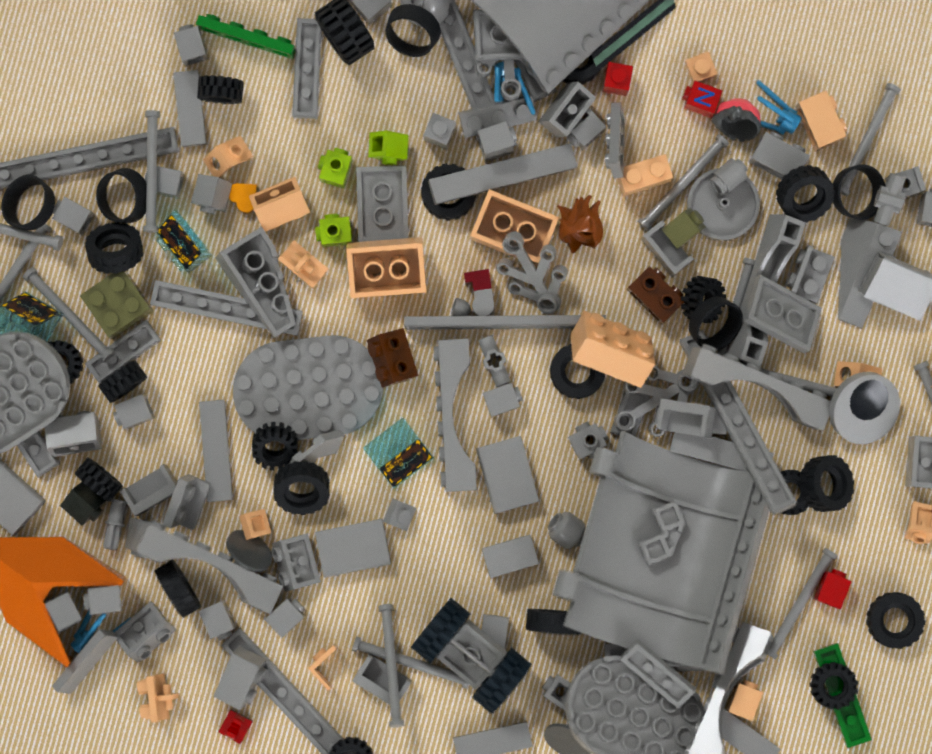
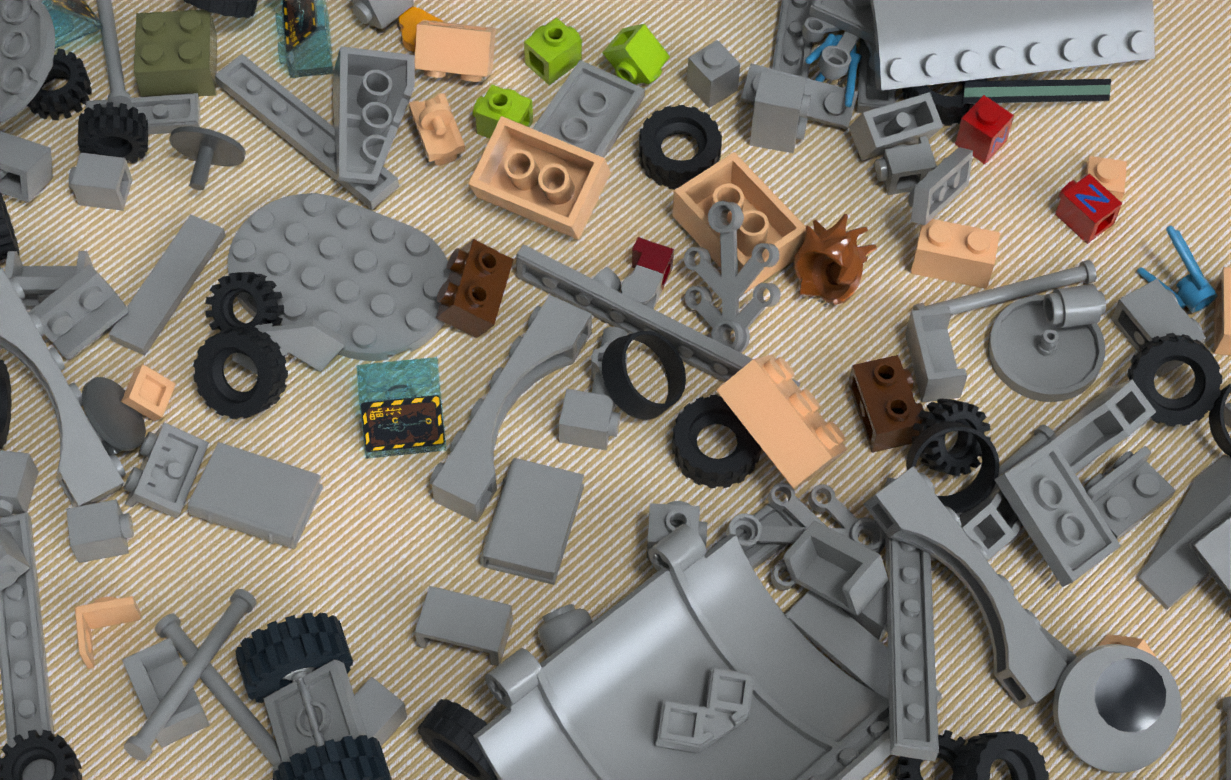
camera: 30 degrees right, 25 degrees down
(186, 370) = (206, 148): none -> dark grey shield
(399, 514) = (348, 487): light grey plate -> none
(502, 174) = (765, 155): light grey tile -> none
(502, 365) = (620, 386): none -> black tyre
(684, 227) = (975, 338): olive brick -> none
(738, 119) = (1124, 250): dark grey hair -> none

